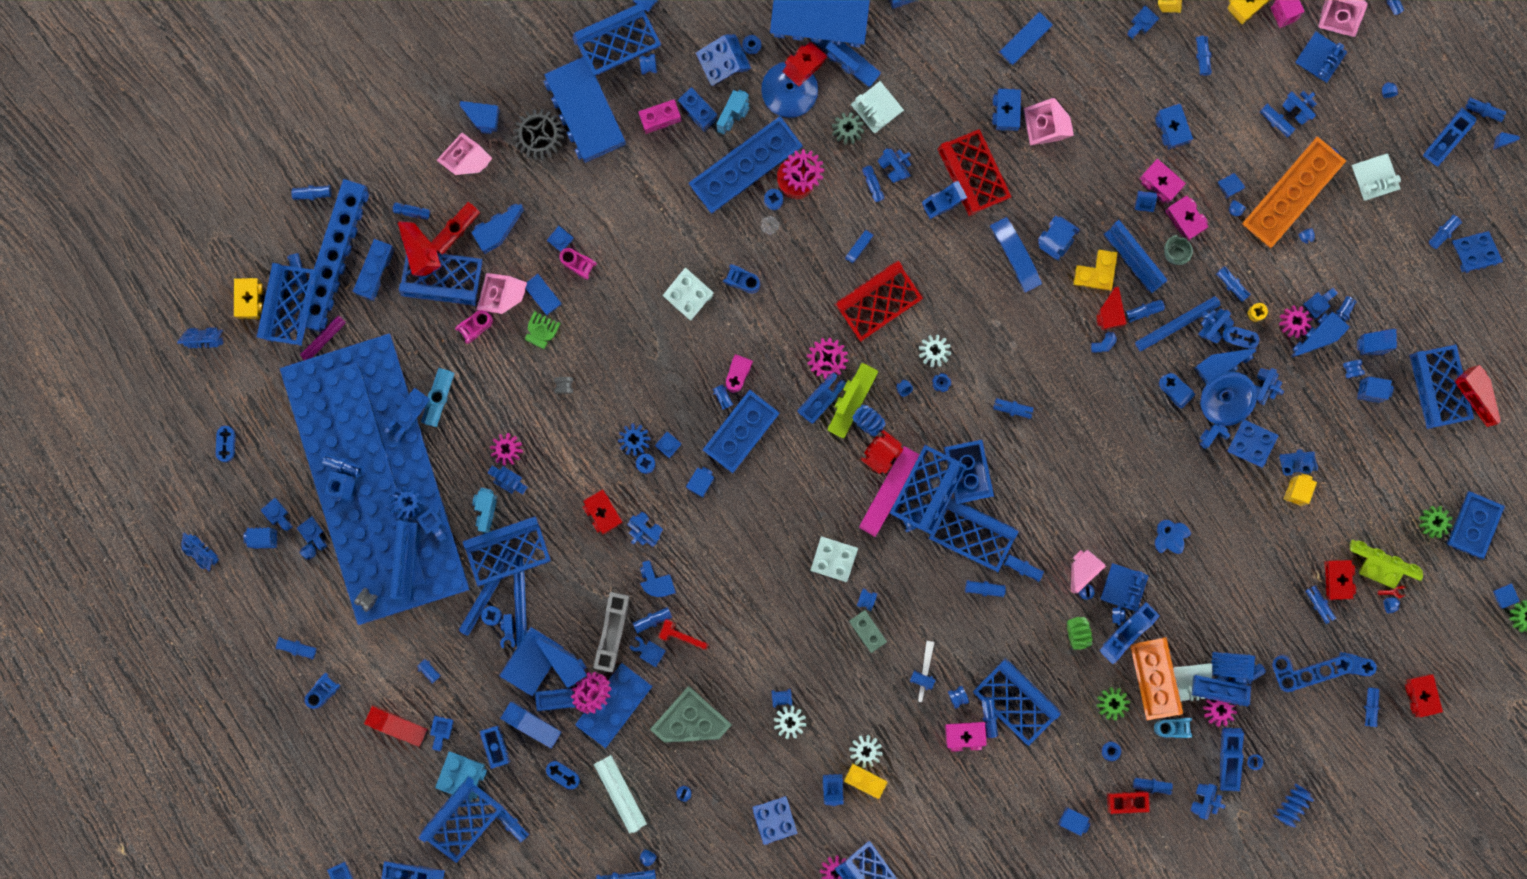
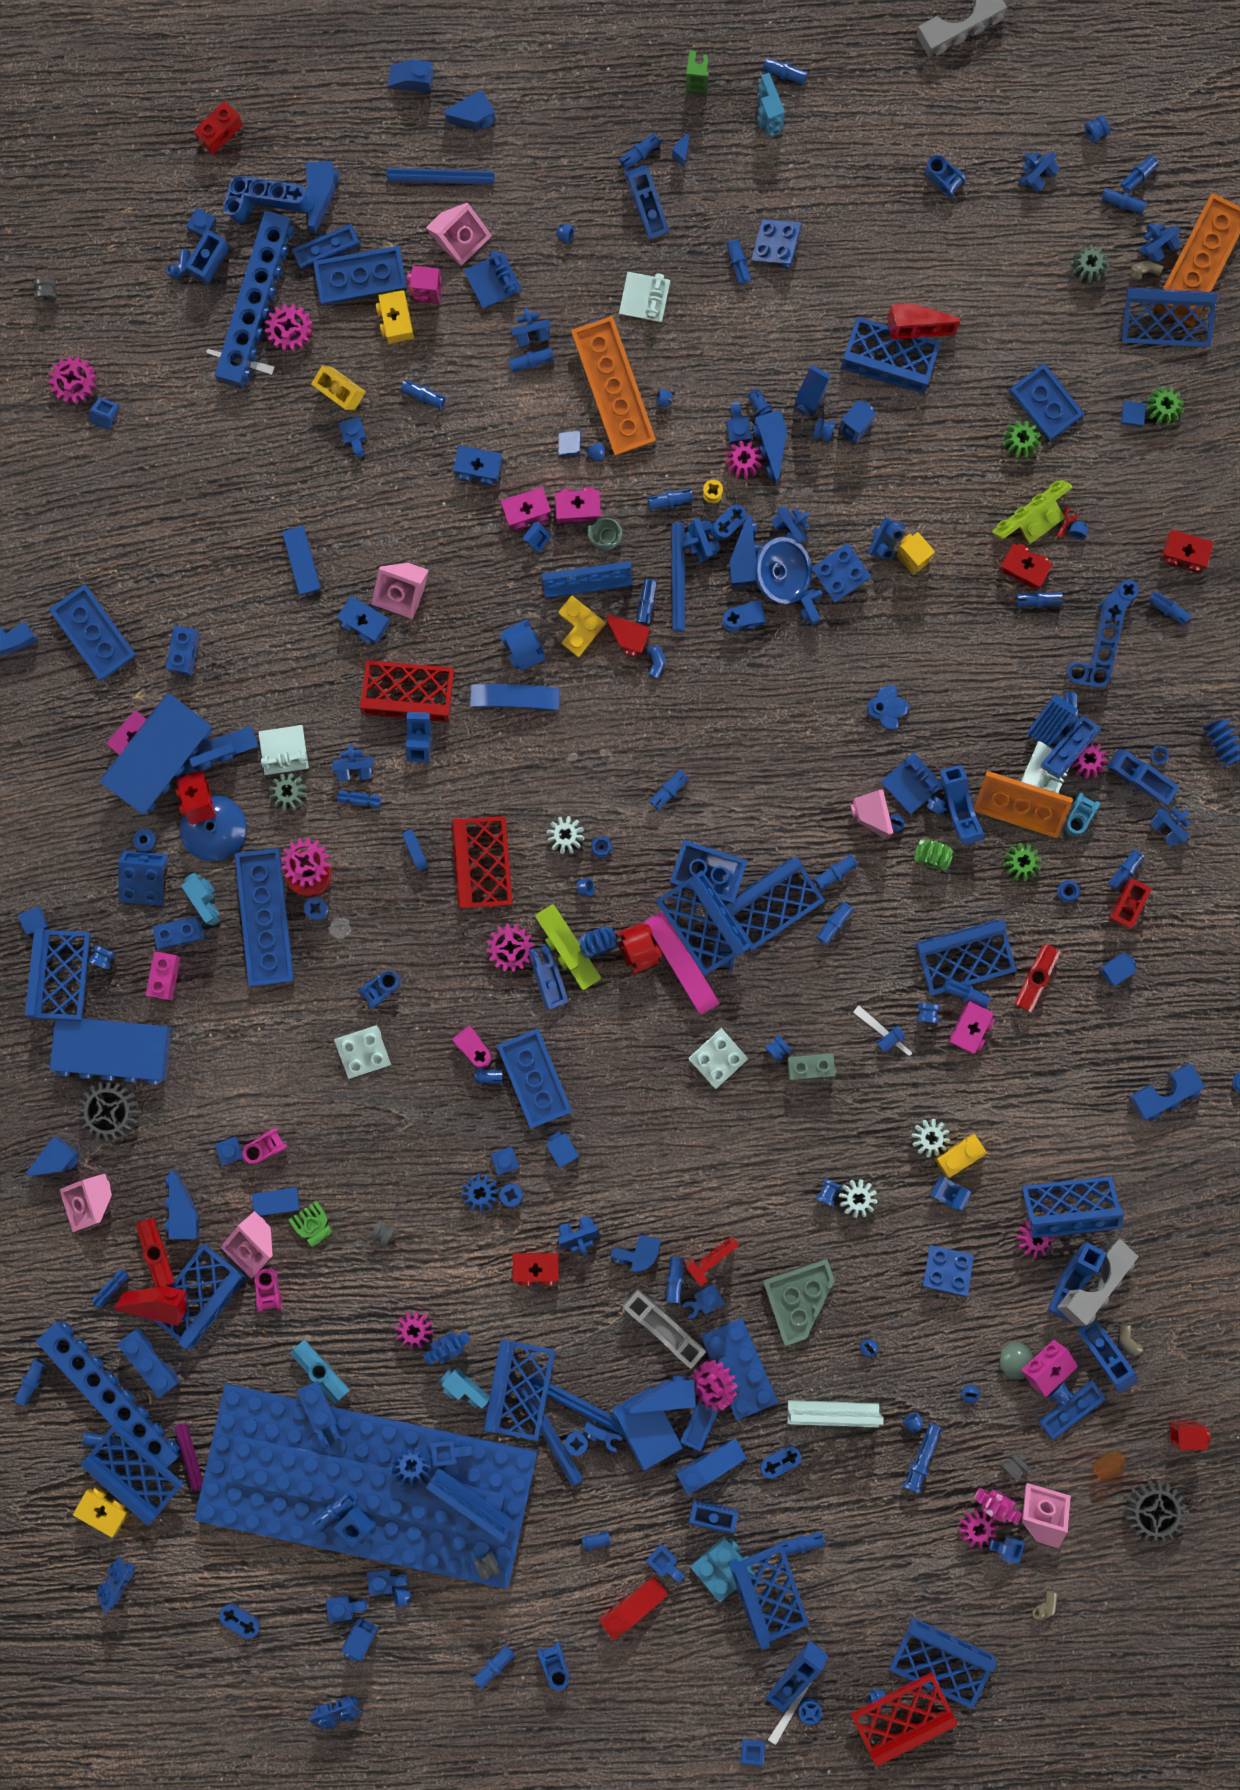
camera: 60 degrees left, 0 degrees up
(1045, 763) = (1031, 991): none -> red piece

